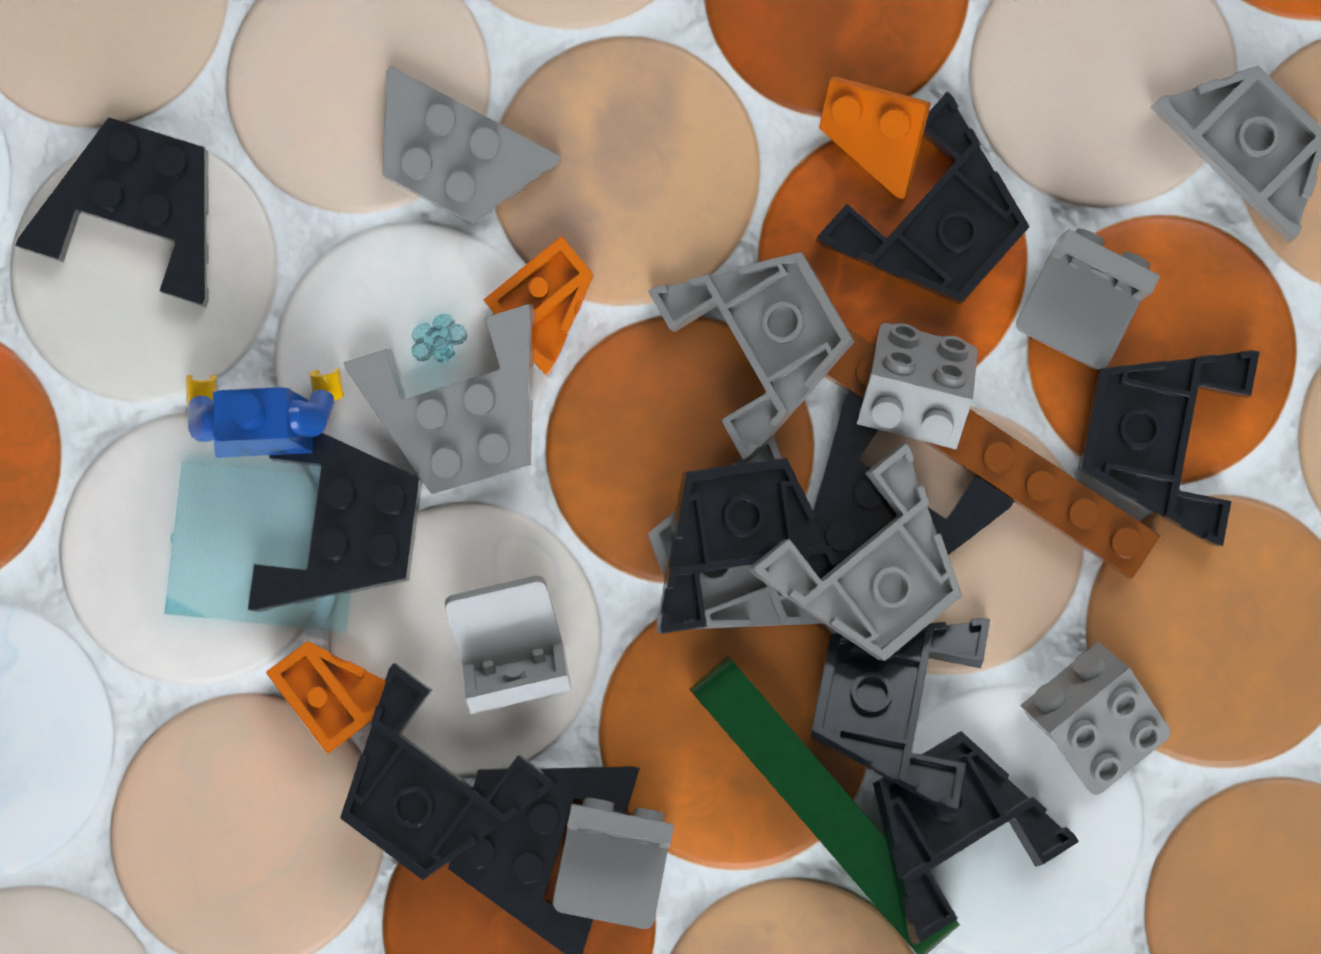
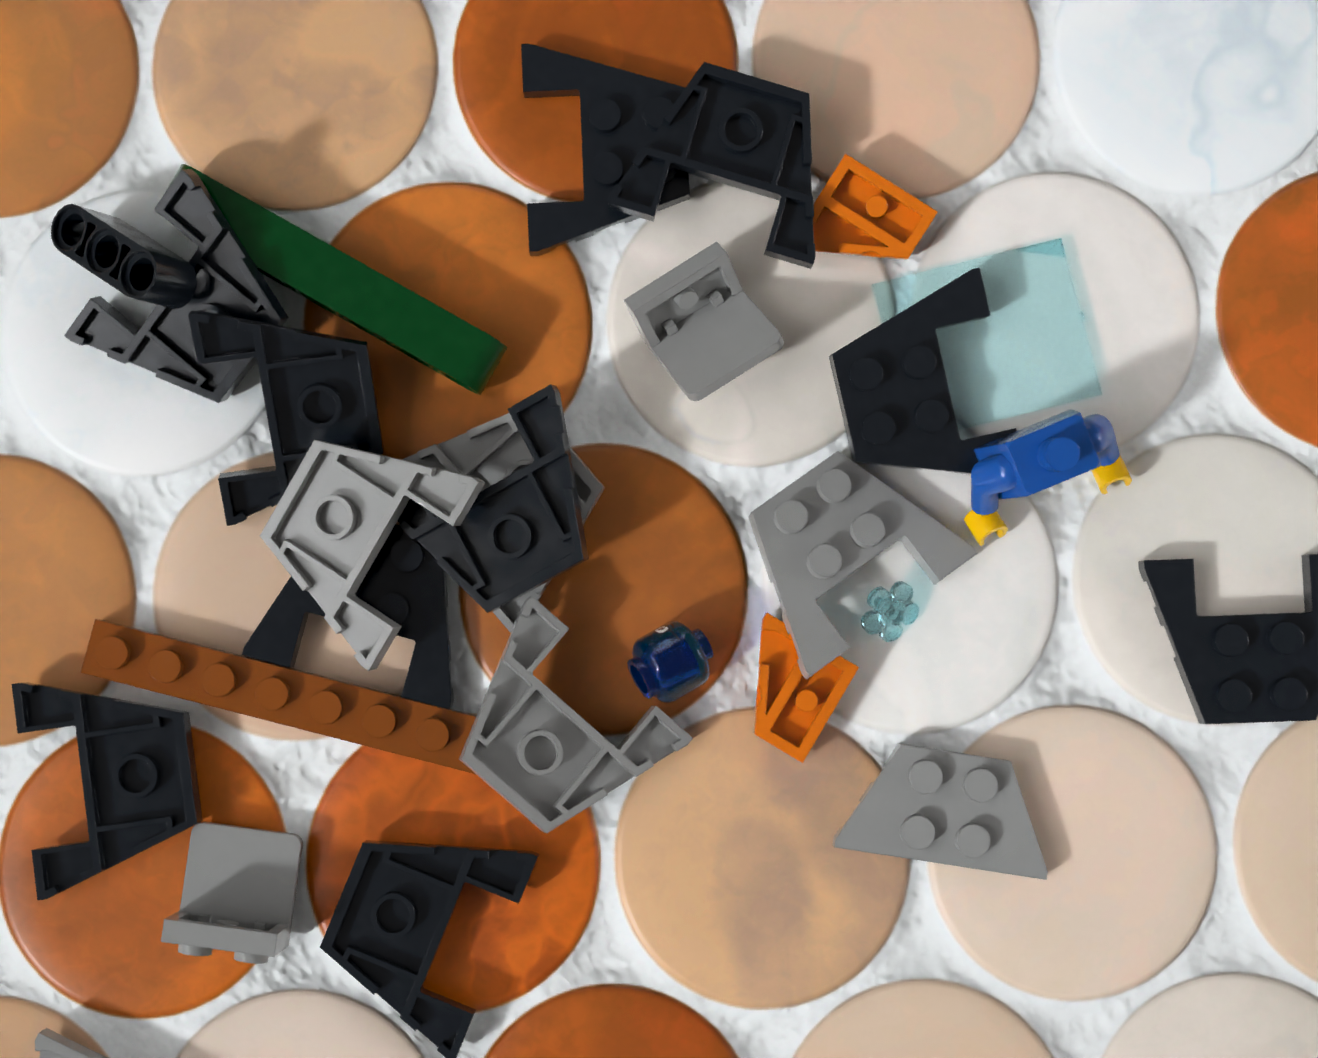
camera: 165 degrees right, 0 degrees up
(612, 864) = (521, 146): light grey bracket -> none
(643, 362) = (670, 662): none -> clear blue head
(876, 130) = (514, 993): orange wing -> none
(919, 385) = (376, 739): light grey bracket -> none
(1000, 887) = (123, 257): none -> black beam
(1098, 717) = (86, 466): light grey bracket -> none

